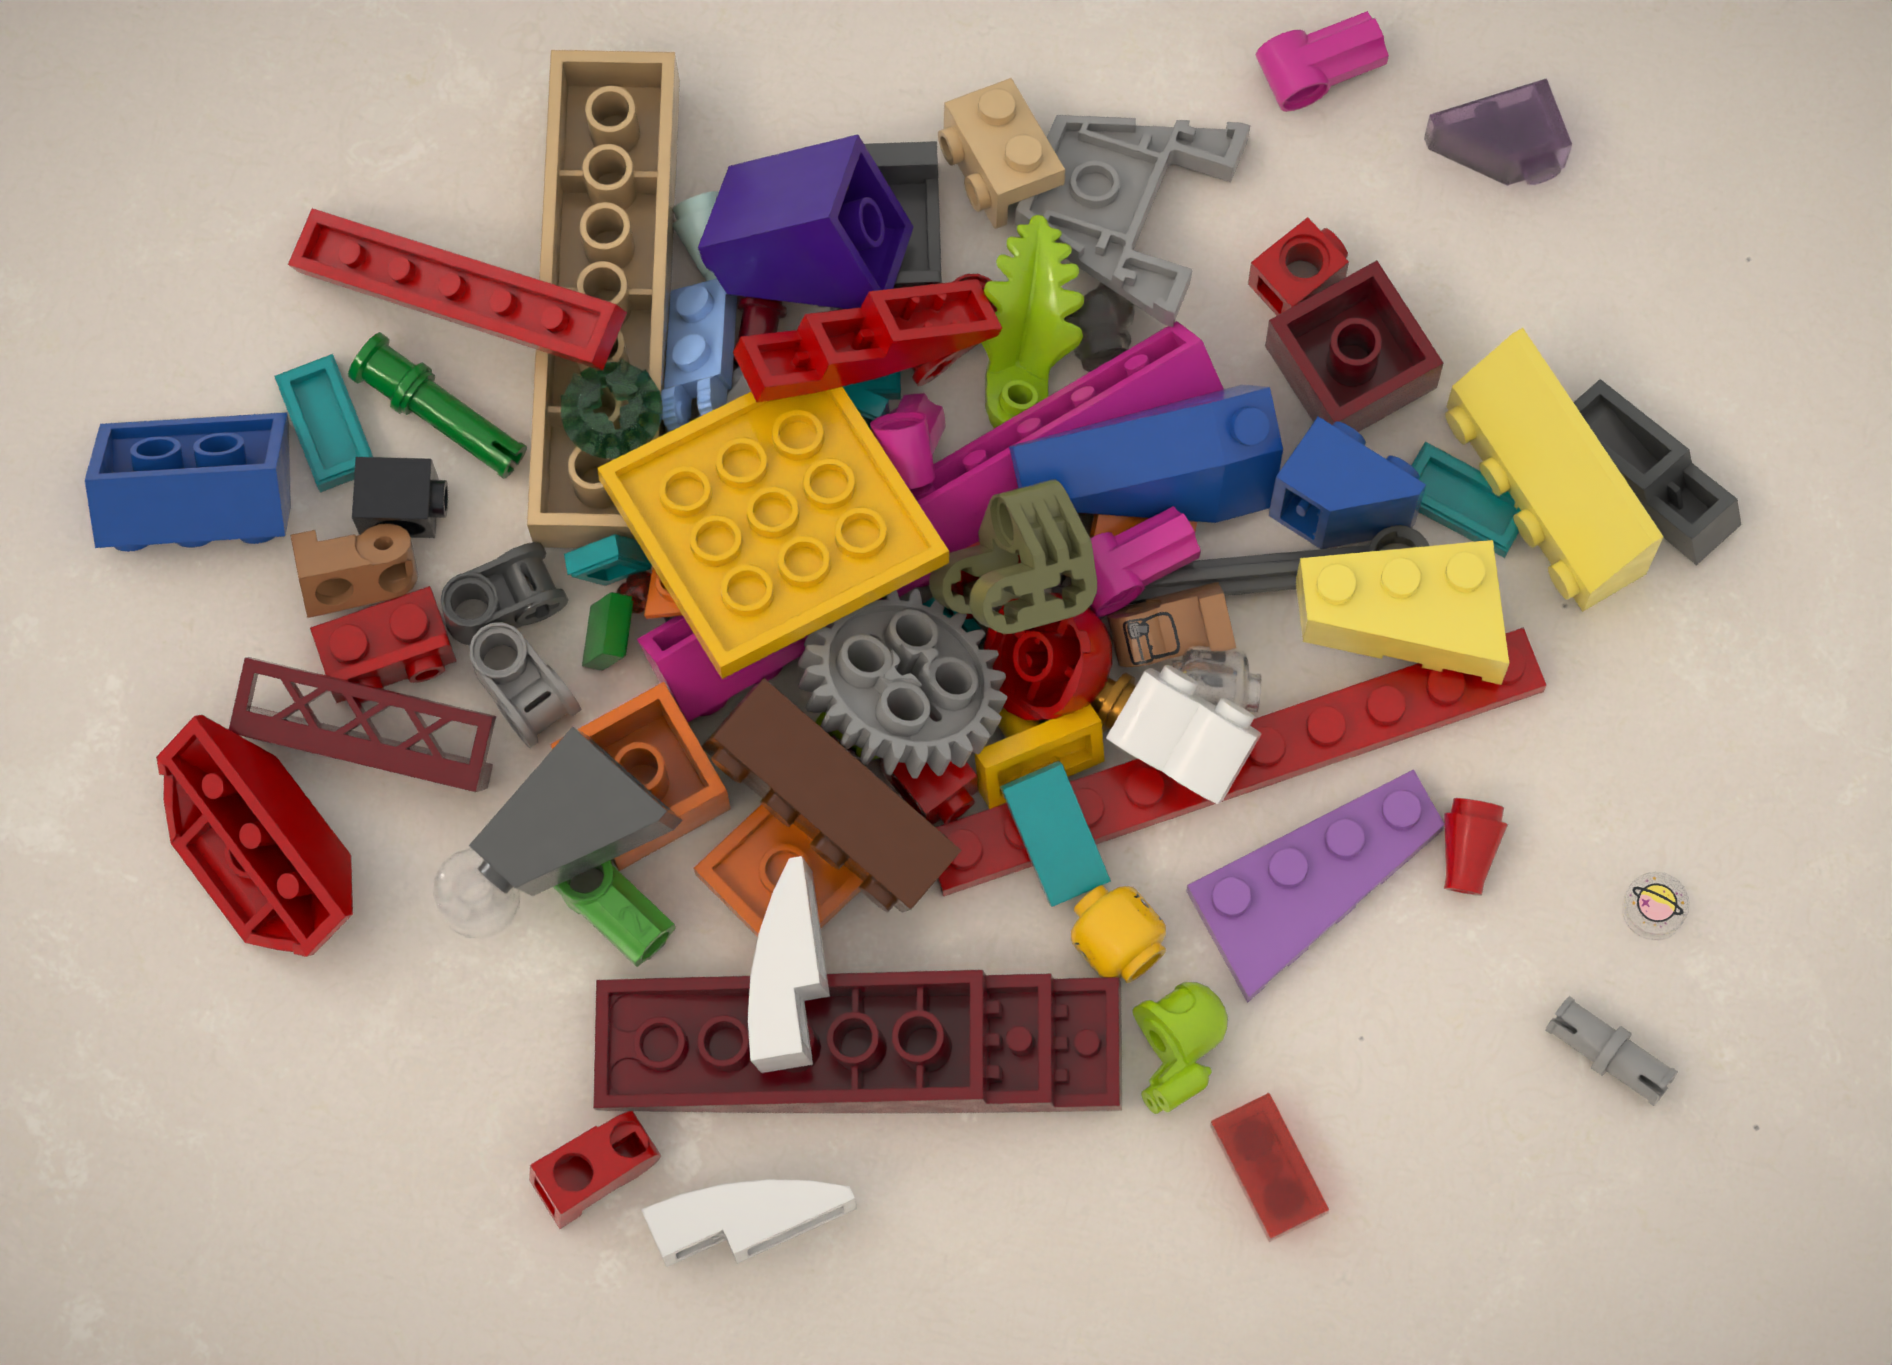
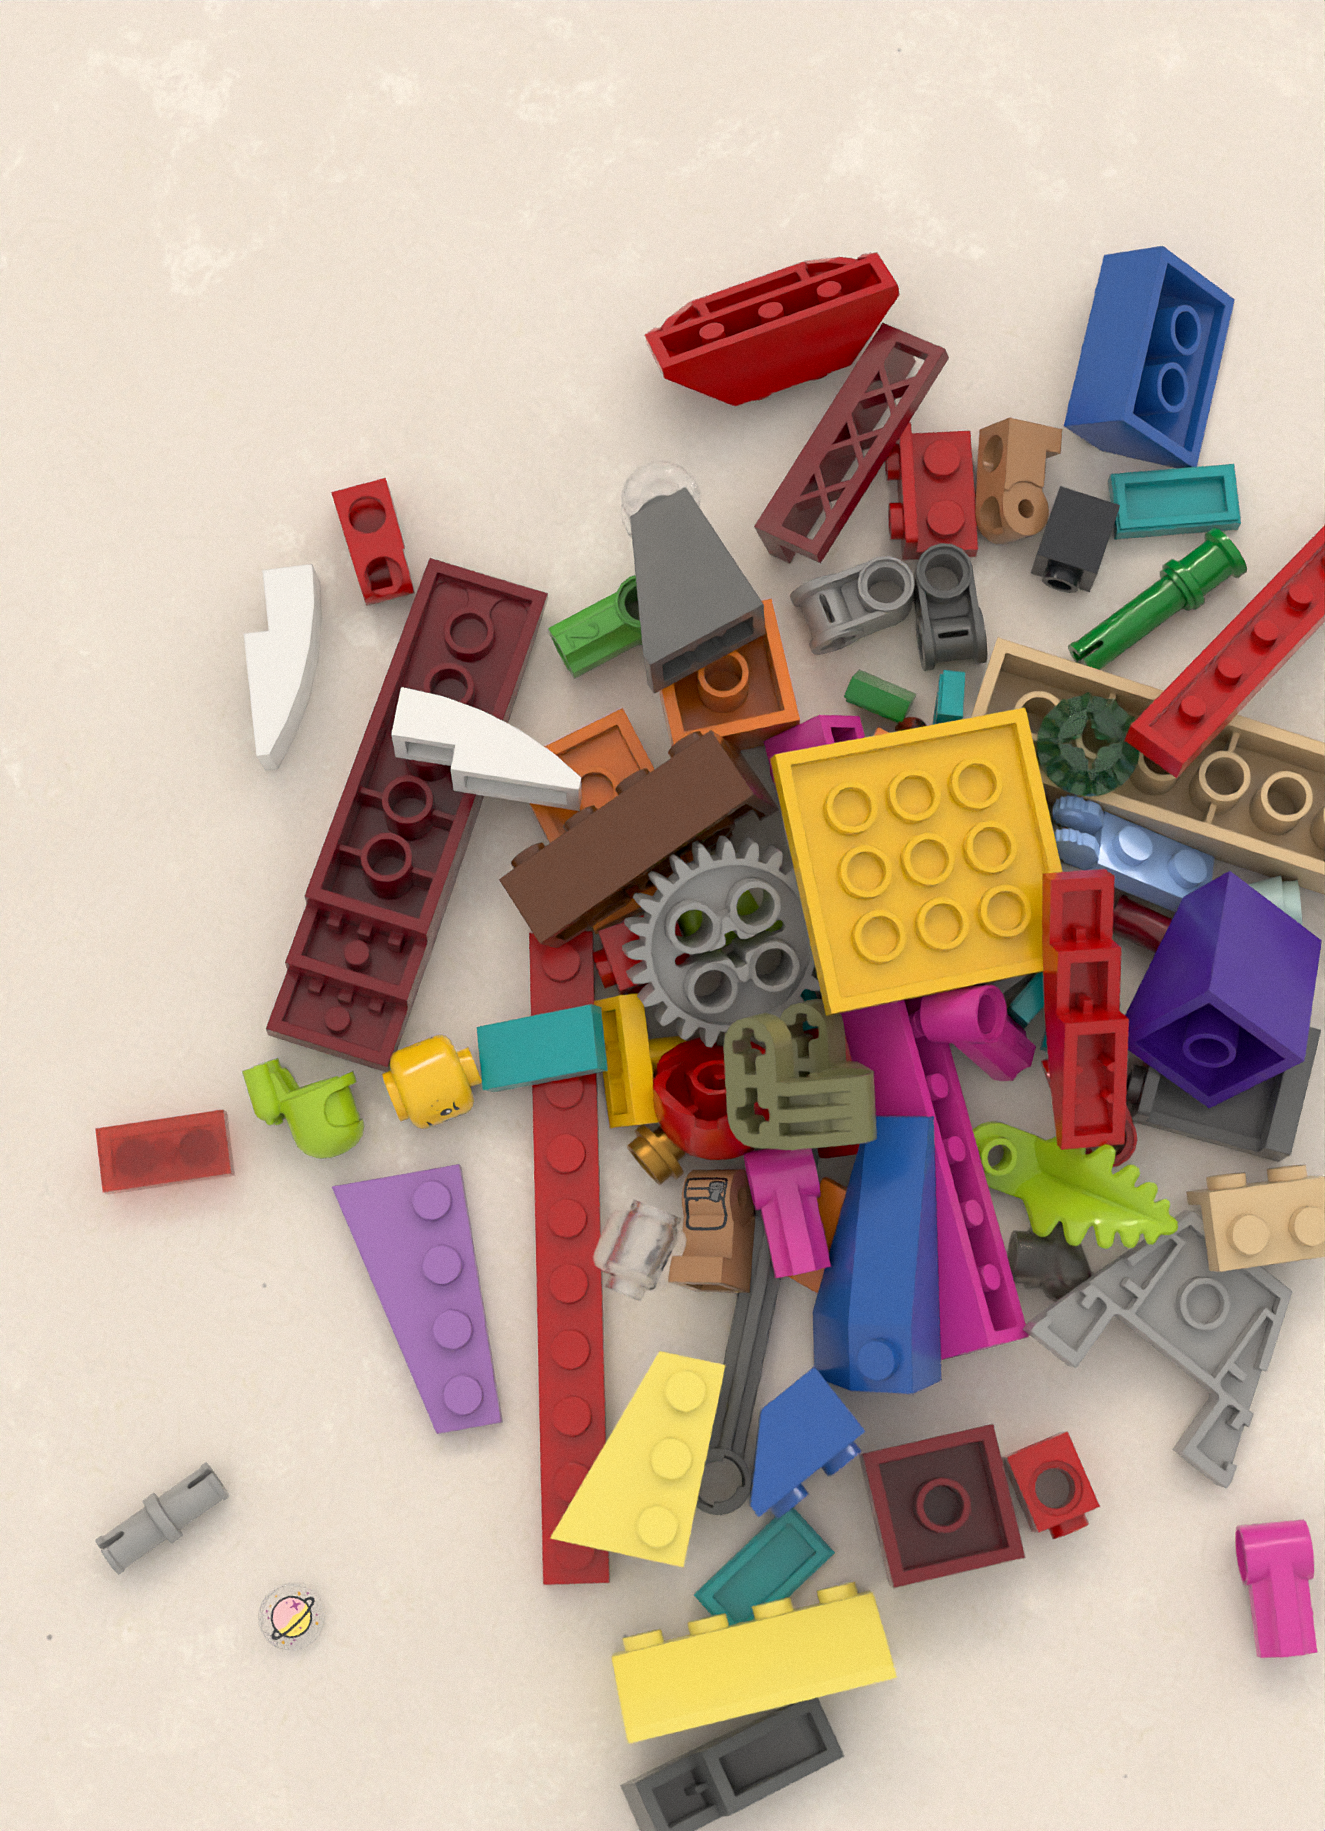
camera: 110 degrees right, 5 degrees up
(1184, 733) = (591, 1198): white brick -> none
(1471, 843) = (409, 1453): red cone -> none
(1505, 135) = (1137, 1753): clear purple slope -> none

